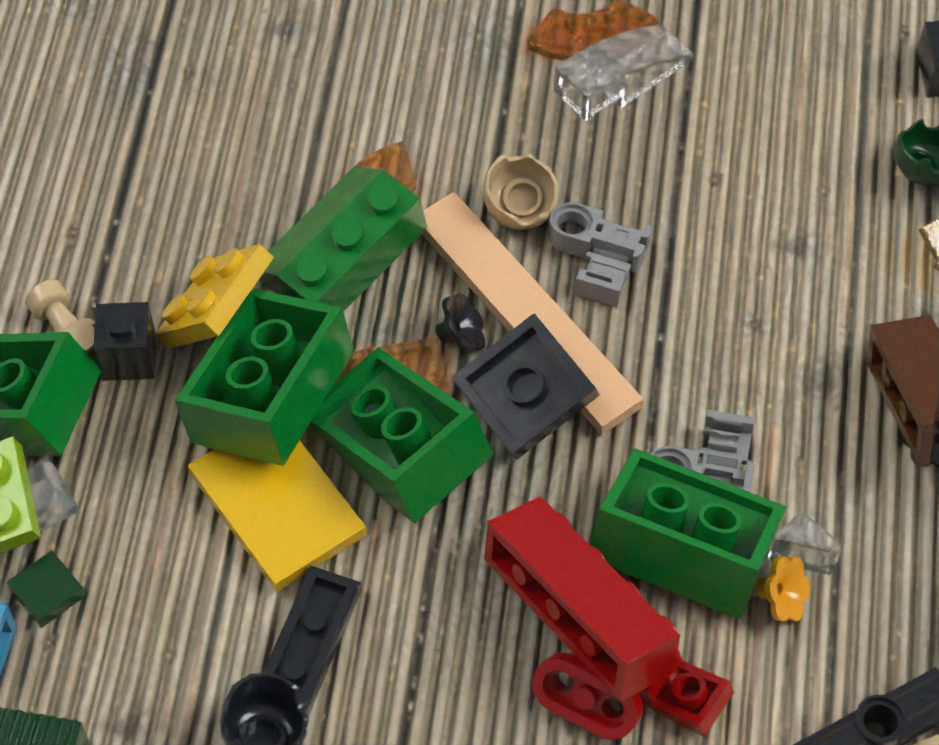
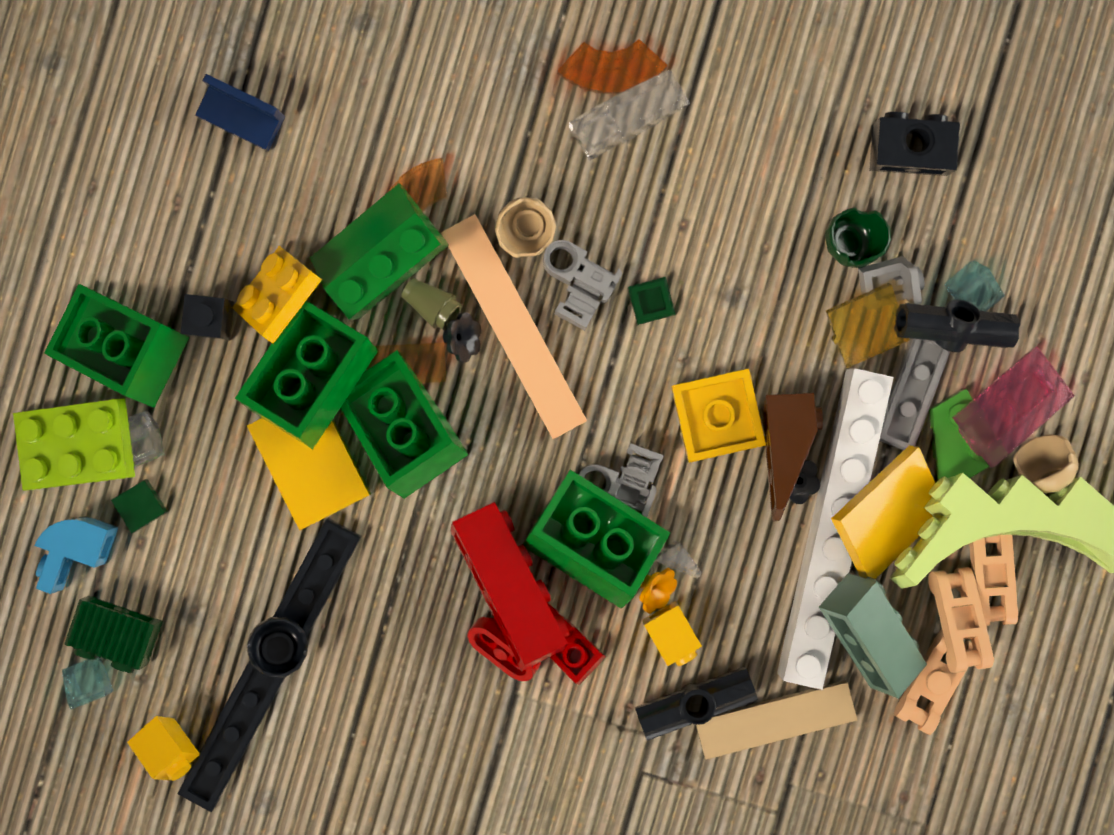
camera: 10 degrees right, 30 degrees up
(50, 302) = (169, 304): tan leg -> none
(146, 121) = (239, 113): none -> dark blue panel
(415, 293) = (432, 303): none -> olive cone
(525, 386) = (500, 401): black plate -> none
(695, 260) = (651, 301): none -> dark green tile
(813, 370) = (718, 415): none -> yellow plate
(820, 641) = (672, 635): none -> yellow brick

